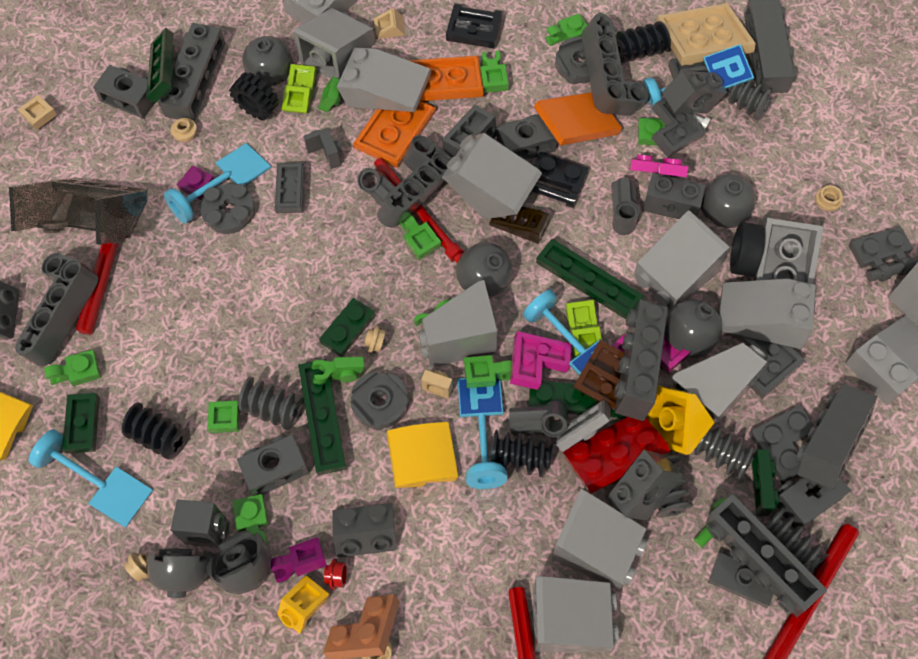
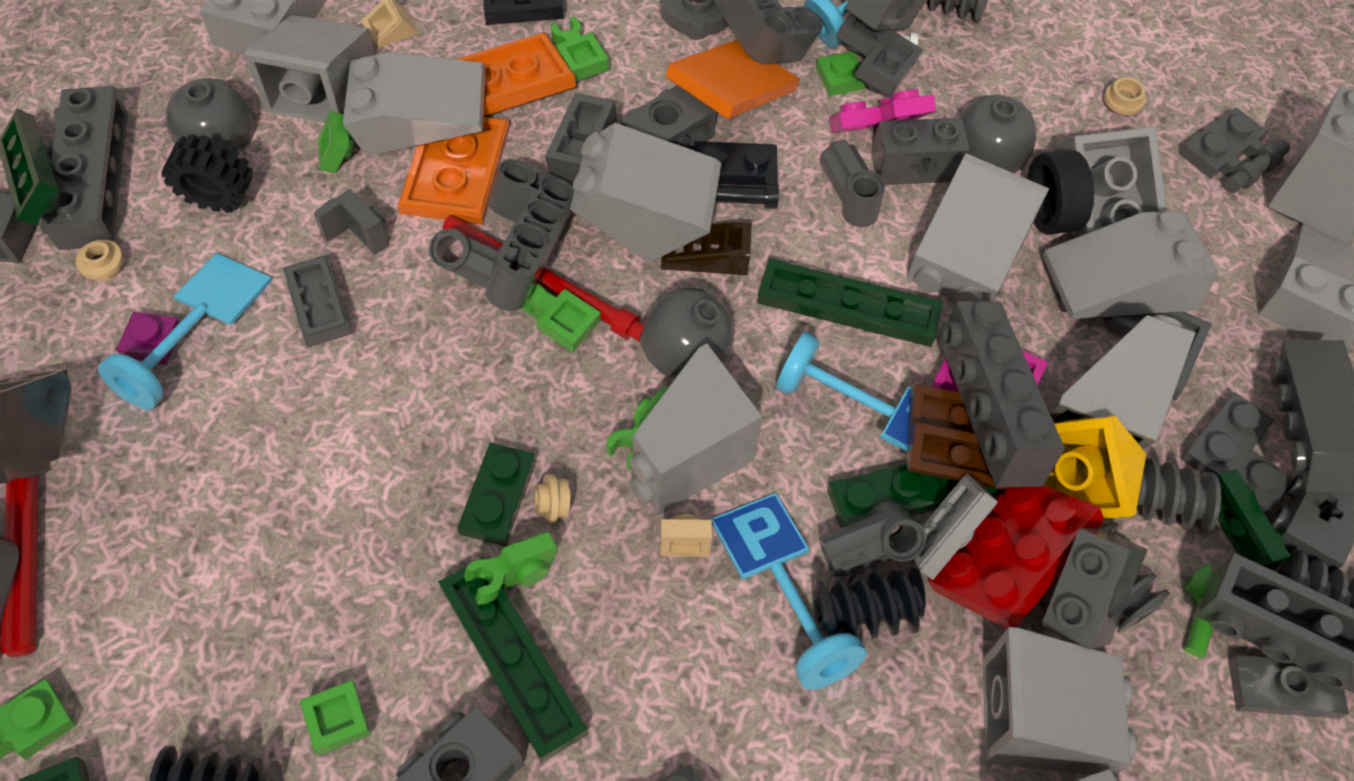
camera: 25 degrees left, 5 degrees down
(219, 196) = (212, 340): dark grey plate -> none
(268, 405) = (411, 667): dark grey piece -> none
(299, 89) = (278, 148): lime slope -> none
(380, 384) = (602, 625): dark grey plate -> none
(422, 454) = (706, 664): yellow slope -> none
(482, 372) = (753, 494): bright green plate -> none
(533, 353) = (821, 441): dark pink plate -> none
(583, 323) = (867, 368): lime slope -> none
(693, 327) = (1044, 321): dark grey cylinder -> none

